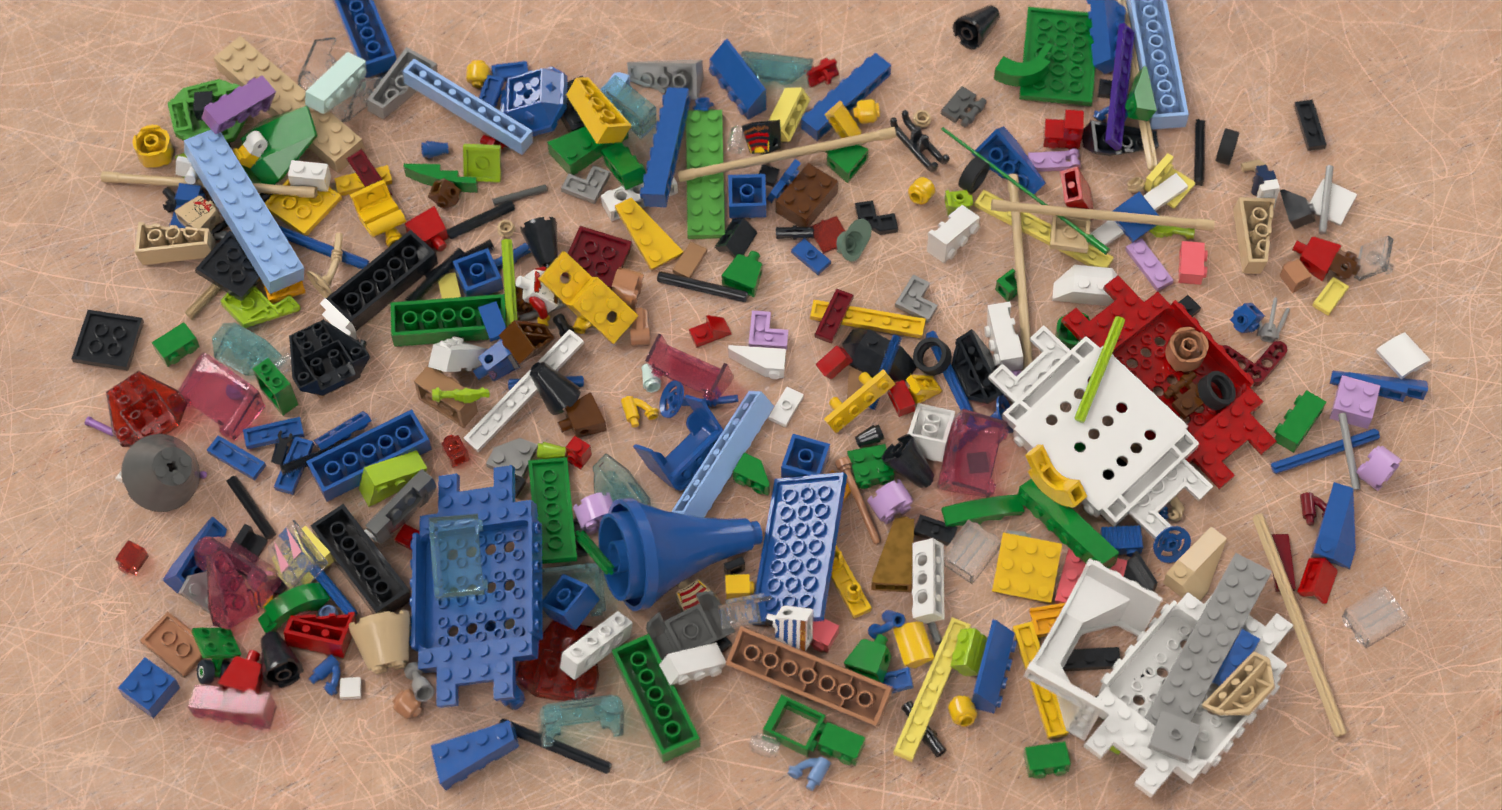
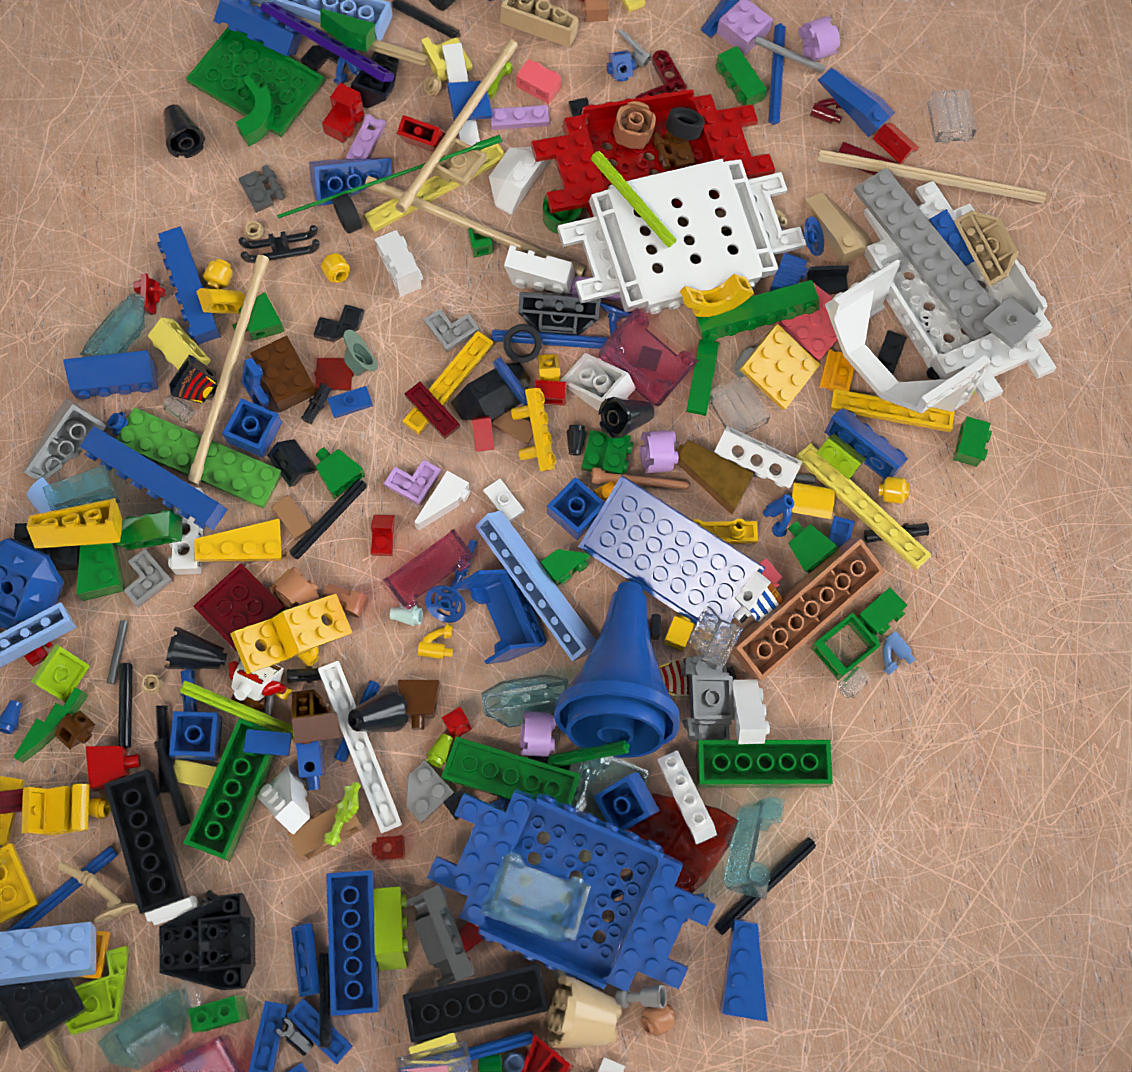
camera: 70 degrees left, 10 degrees up
(771, 174) = (233, 397): black tile -> none
(932, 528) = (702, 427): black plate -> none
(957, 198) = (364, 243): lime brick -> none

